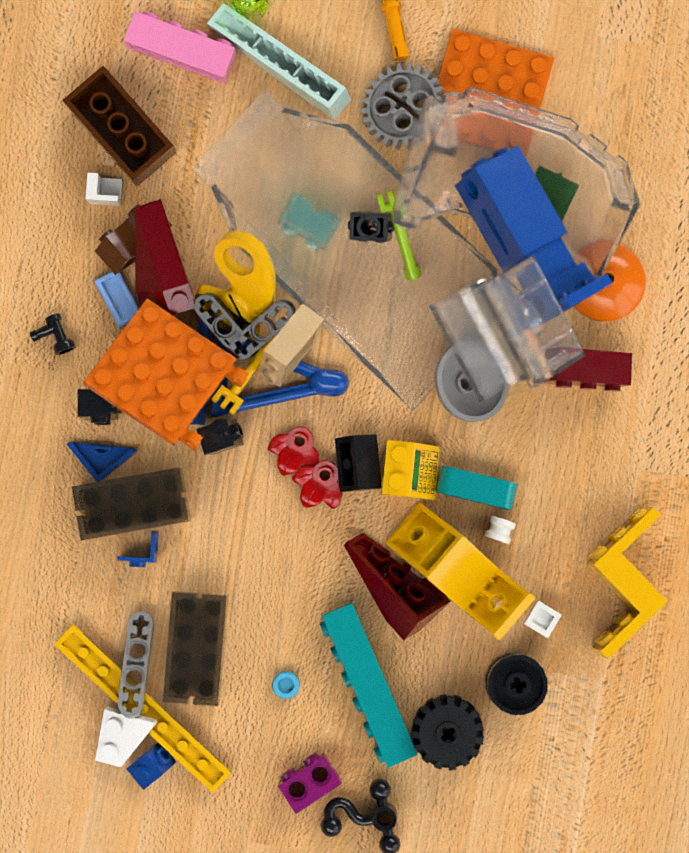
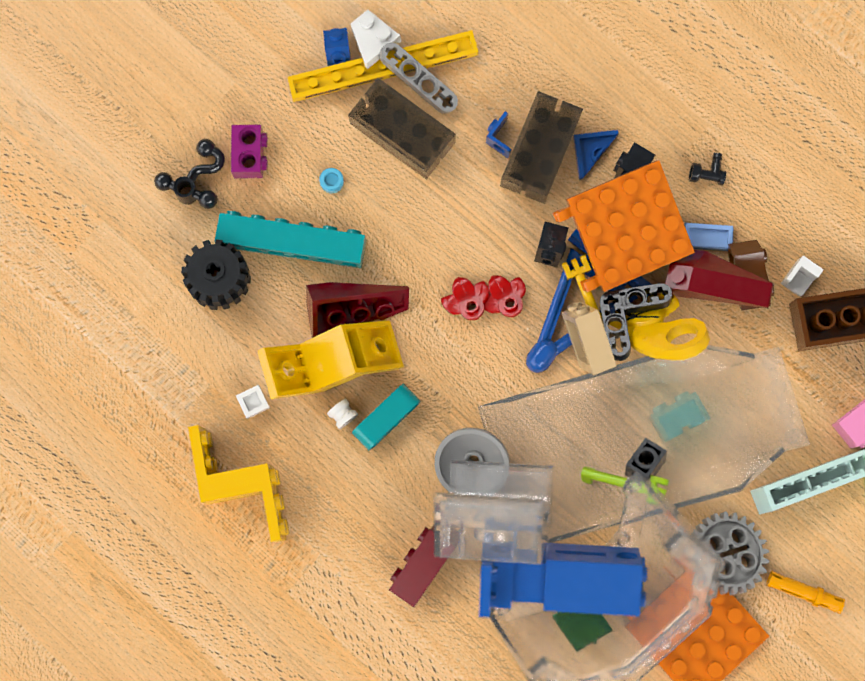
camera: 125 degrees right, 5 degrees down
(360, 466) = (463, 336): black brick -> none
(410, 470) = (433, 374): yellow slope -> none
(527, 695) = (205, 342): black wheel -> none
(624, 292) = (466, 633): orange dish -> none

